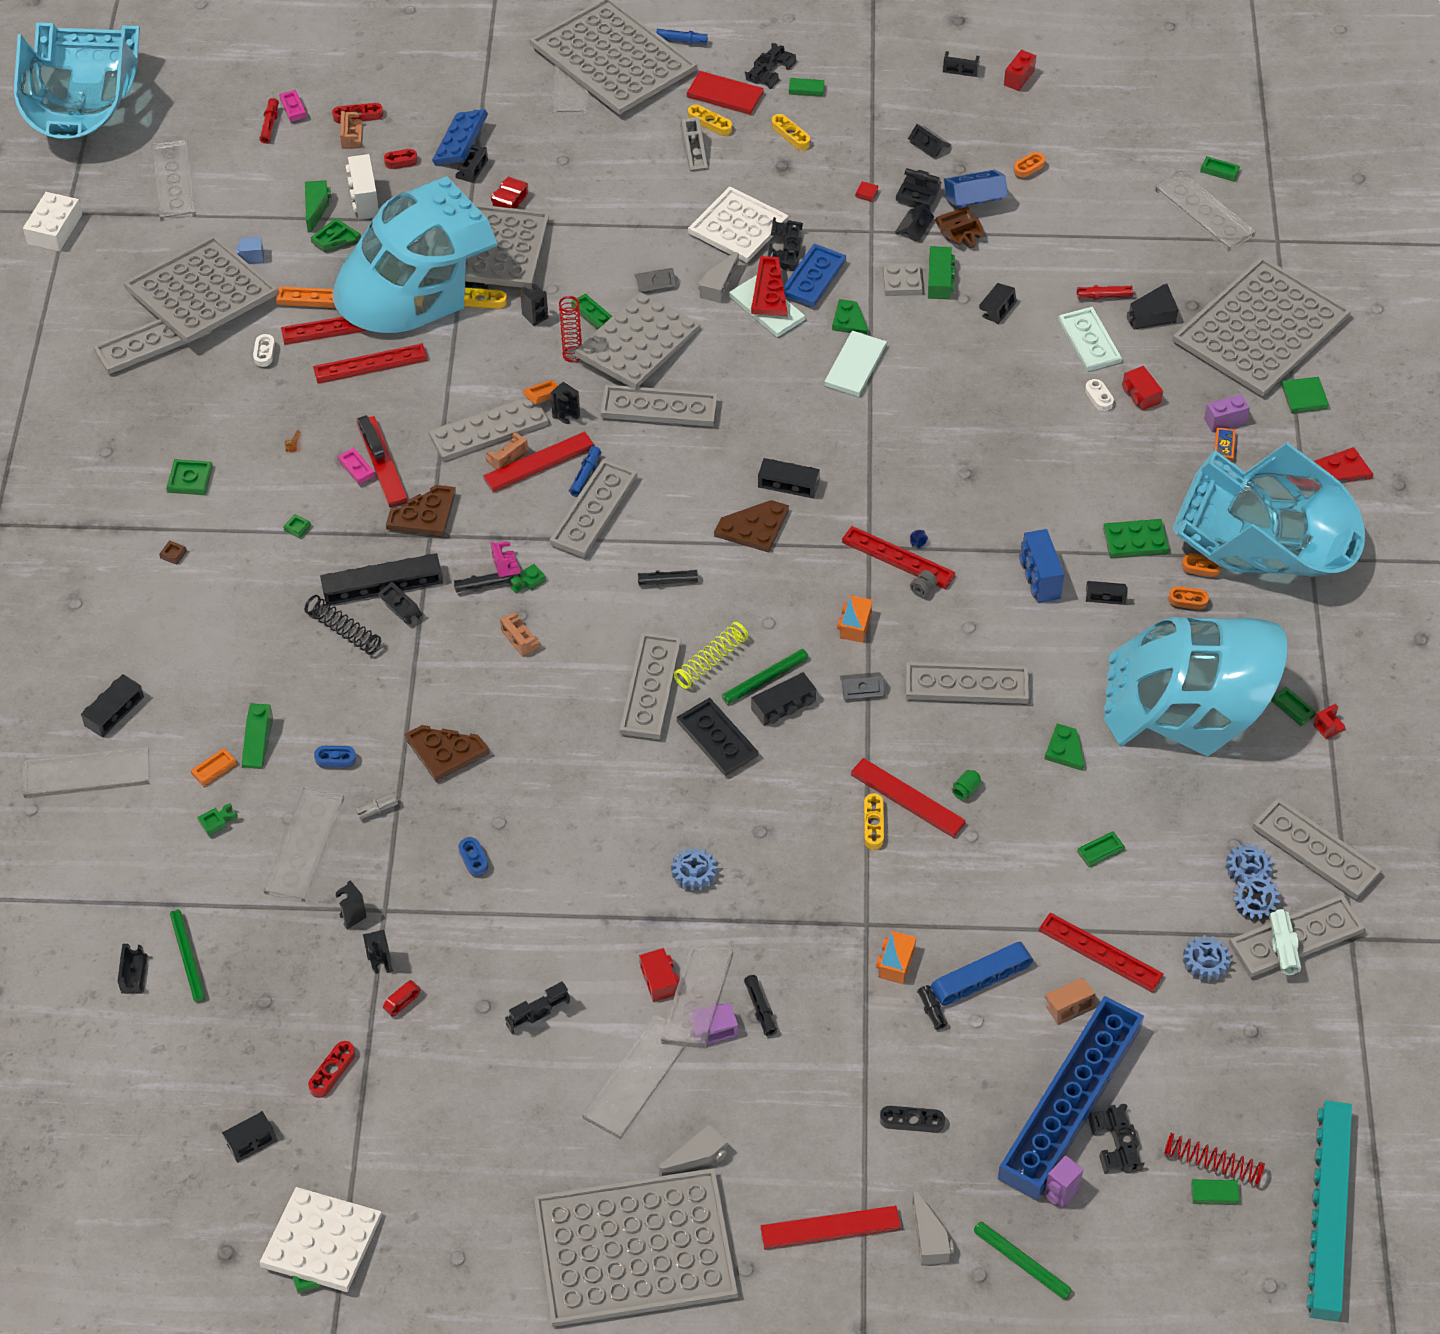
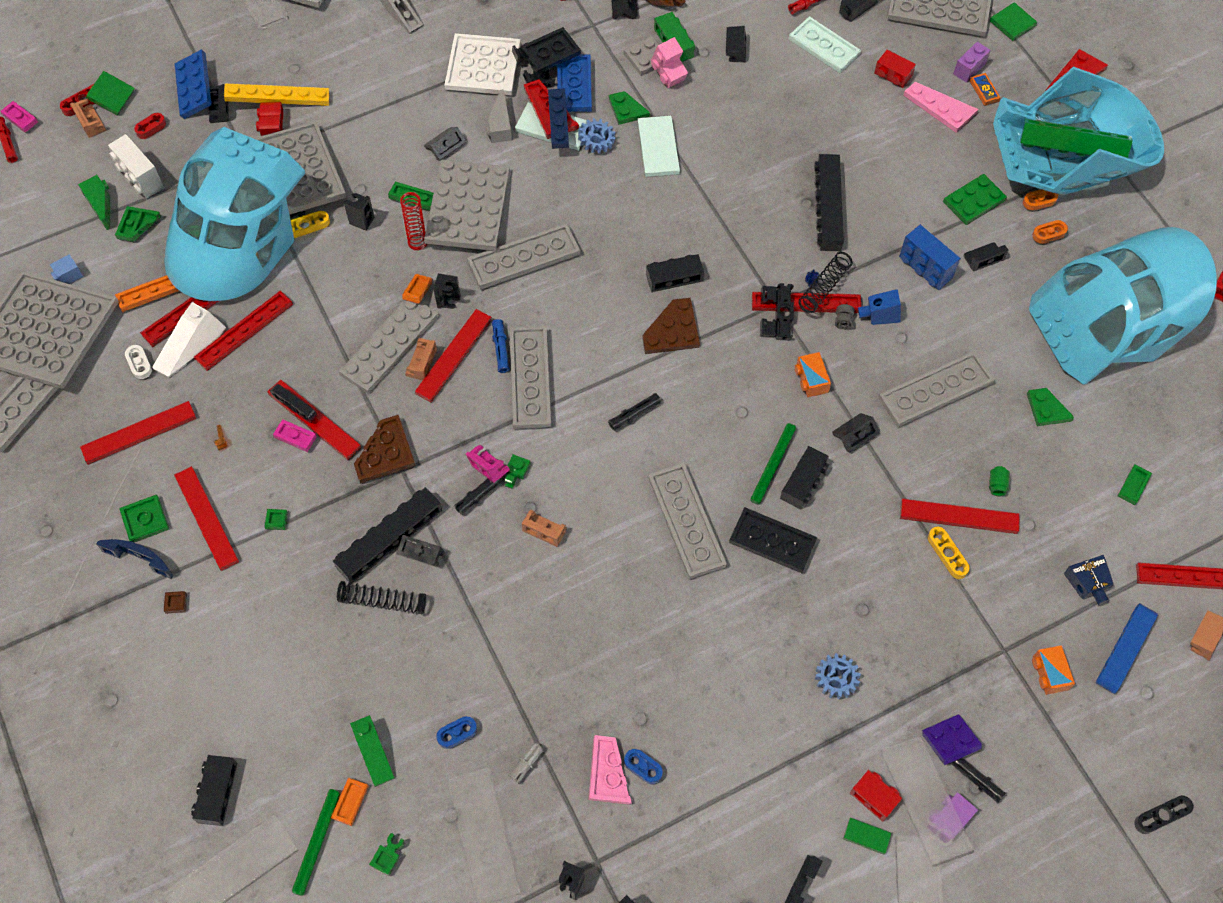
camera: 30 degrees left, 10 degrees up
(154, 488) = (116, 547): none -> dark blue slope
(166, 783) = (315, 843): none -> green axle
(228, 407) = (138, 432): none -> red tile
(240, 499) = (206, 518): none -> red tile
(321, 346) = (191, 335): none -> white wedge
(383, 116) = (110, 93): none -> green tile
(439, 846) = (606, 775): none -> bright pink wing
(445, 750) = (550, 673): reddish brown plate -> none
(528, 174) = (281, 94): none -> yellow plate
(629, 1003) = (867, 836): none -> green tile
(737, 638) = (727, 439): neon yellow piece -> none
(759, 964) = (951, 739): none -> dark purple plate
(770, 298) = (558, 118): none -> dark blue plate
(800, 329) = (596, 135): none -> medium blue gear
(807, 235) = (550, 50): none -> black plate
(859, 564) = (781, 323): none -> black piece
(913, 289) = (668, 63): none -> bright pink brick
(932, 1007) = (1110, 701): black pin -> none
(953, 537) = (839, 264): none -> black piece
(964, 591) = (882, 308): none -> blue torso
(983, 480) = (829, 202): none -> black brick
(992, 902) = (1091, 579): none -> dark blue torso
(1099, 395) = (862, 88): white plate -> none
(1166, 442) = (942, 107): none -> bright pink wing
(1251, 510) = (1073, 139): none -> green brick

